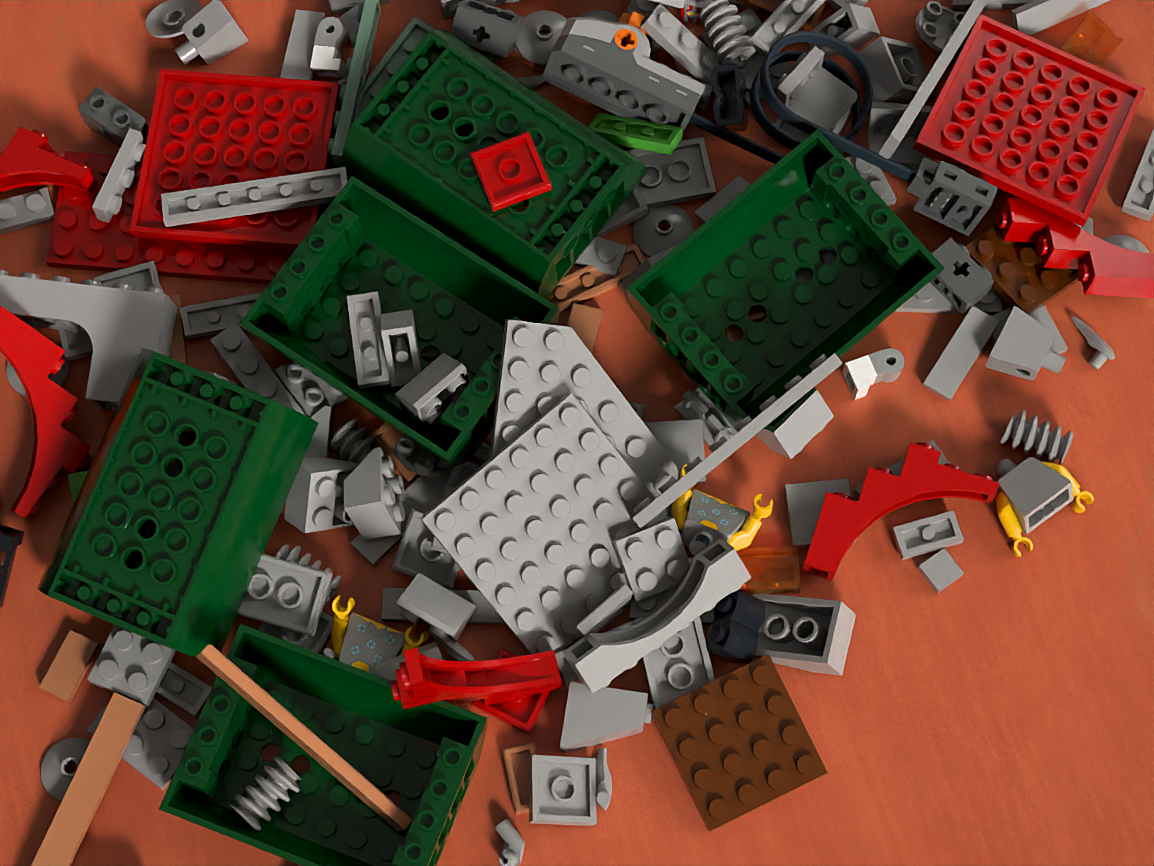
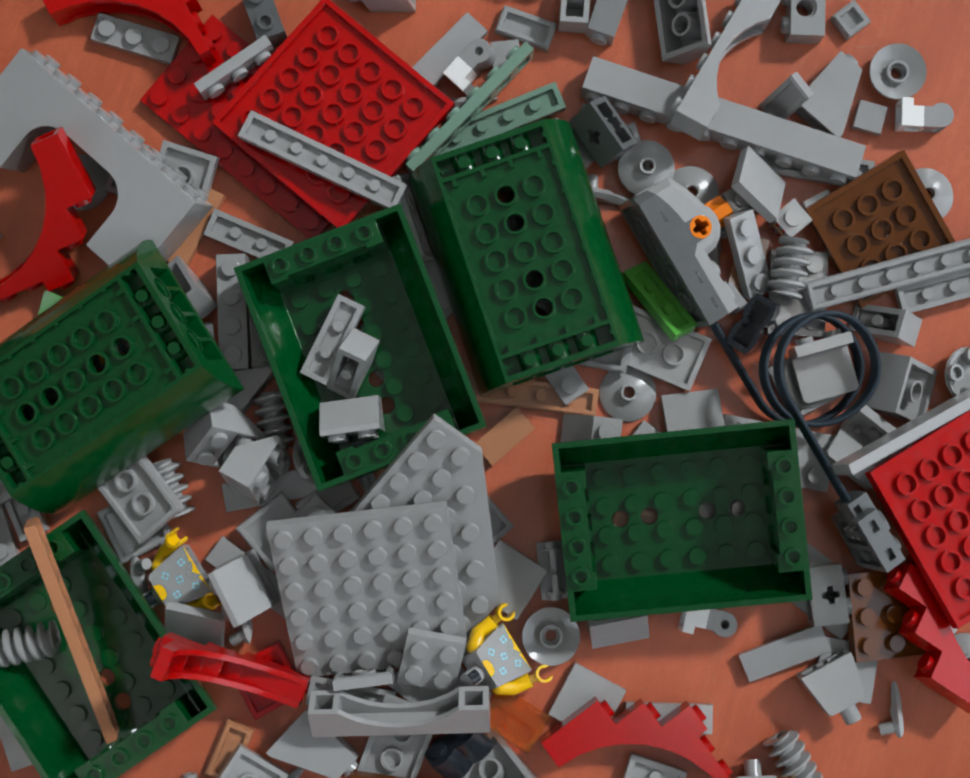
camera: 35 degrees right, 15 degrees up
(510, 171) = (525, 286): red tile -> none
(745, 431) = (562, 624): light grey plate -> none
(751, 461) = (550, 651): none -> light grey dish

